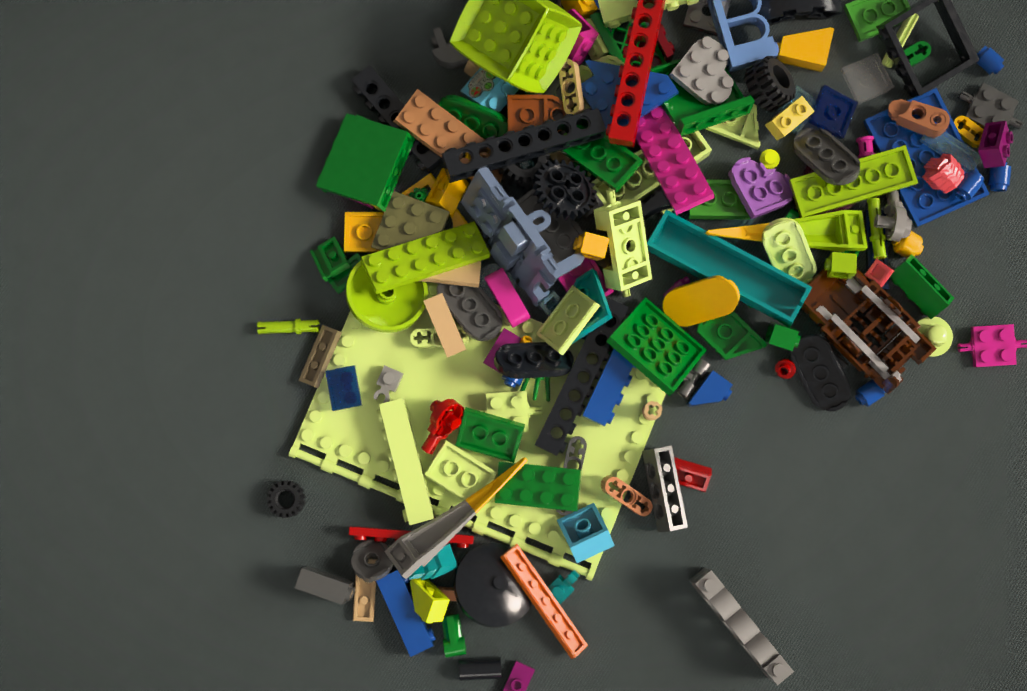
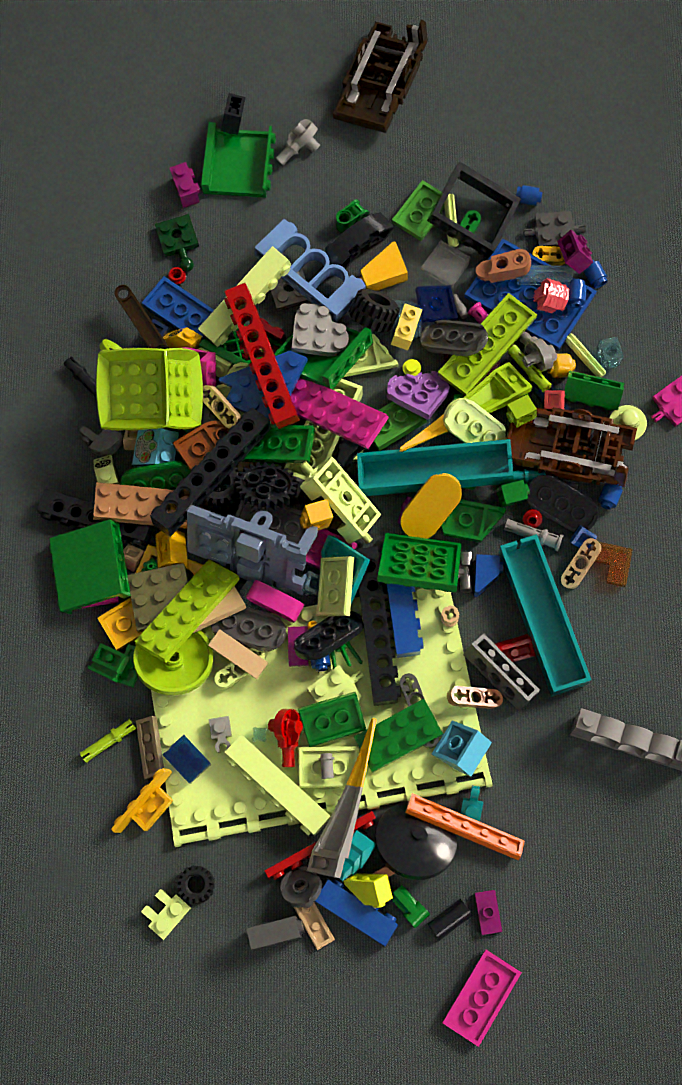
camera: 30 degrees left, 10 degrees down
(247, 511) = (169, 917): none -> yellowish green plate
(286, 407) = (148, 805): none -> yellow bracket
(409, 175) = (132, 557): none -> tan slope
(419, 406) = (259, 734): none -> clear light blue piece
(434, 82) = (106, 470): none -> yellowish green slope
(458, 473) = (326, 765): none -> light grey pin
(736, 462) = (544, 615): none -> teal piece
(783, 391) = (545, 537): none -> light grey pin
(788, 448) = (593, 554): none -> tan beam
(807, 326) = (526, 475): none -> teal pin
(818, 416) = (581, 535): none -> blue plate
(837, 454) = (618, 560): none -> clear orange plate
(852, 130) = (461, 309): none -> light grey piece
(936, 248) = (585, 356): none -> yellowish green axle
(967, 254) = (610, 345): none -> clear light blue brick

